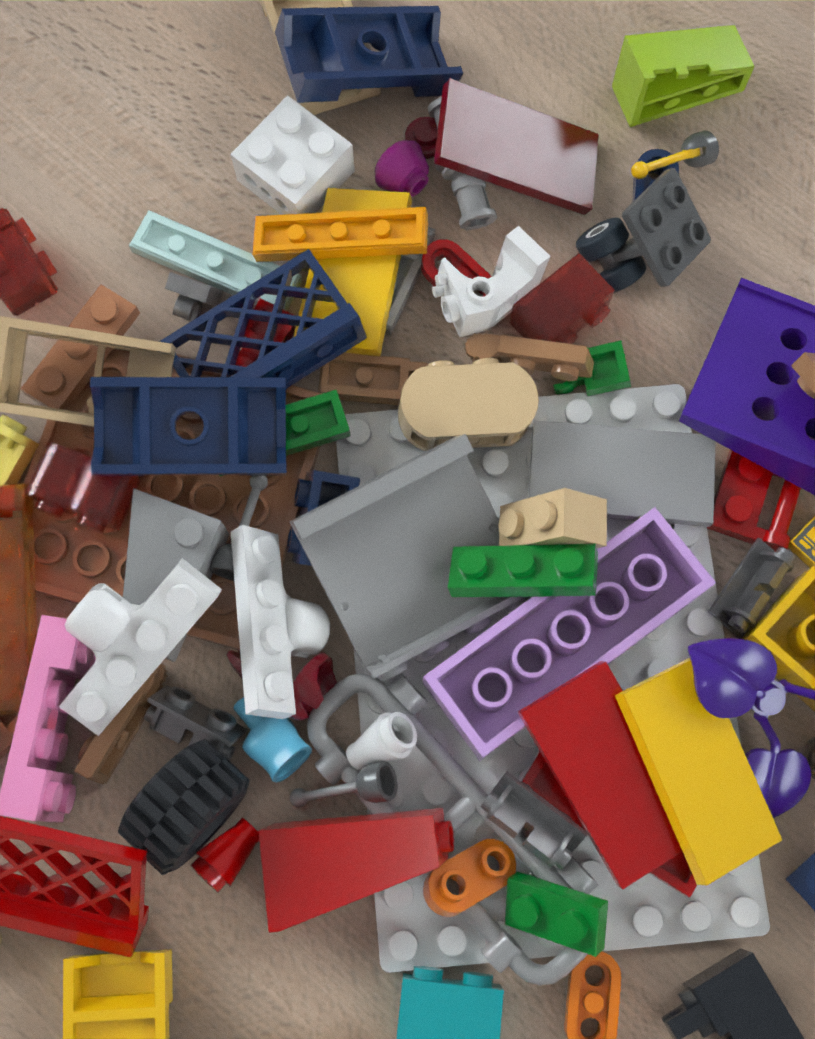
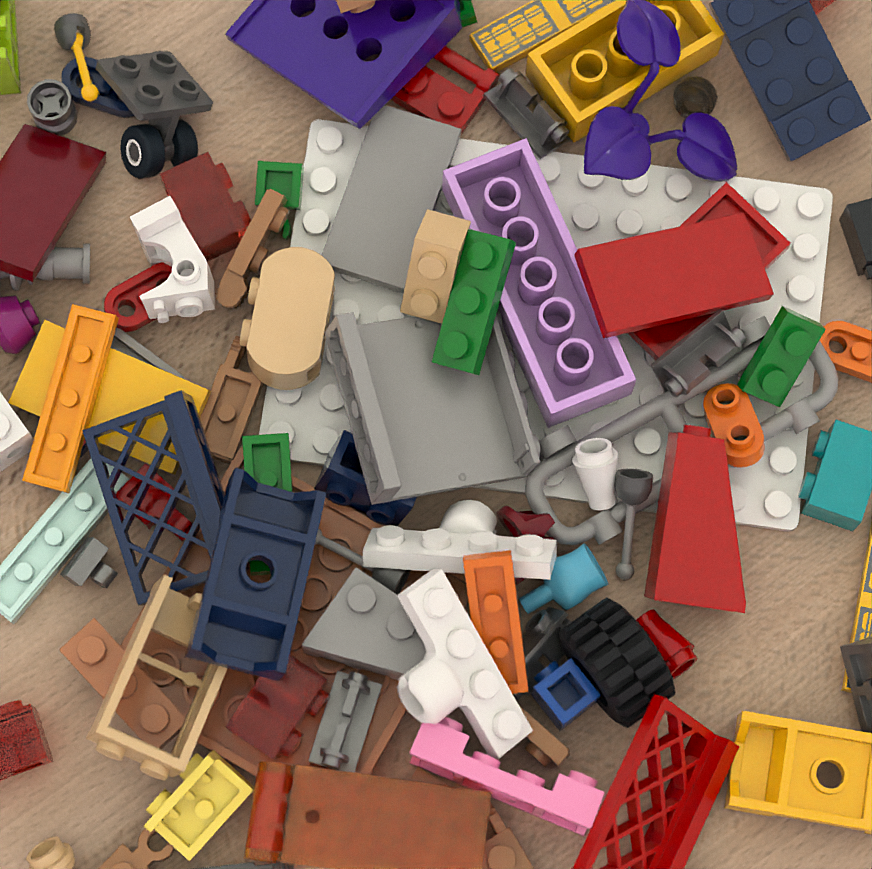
camera: 80 degrees left, 0 degrees up
(79, 555) = (345, 722): none -> flat silver hinge
(145, 755) = (563, 692): none -> blue brick
(197, 669) = (496, 613): none -> orange plate
(619, 150) = (52, 98): none -> flat silver wheel
(698, 774) = (688, 201): yellow tile -> none

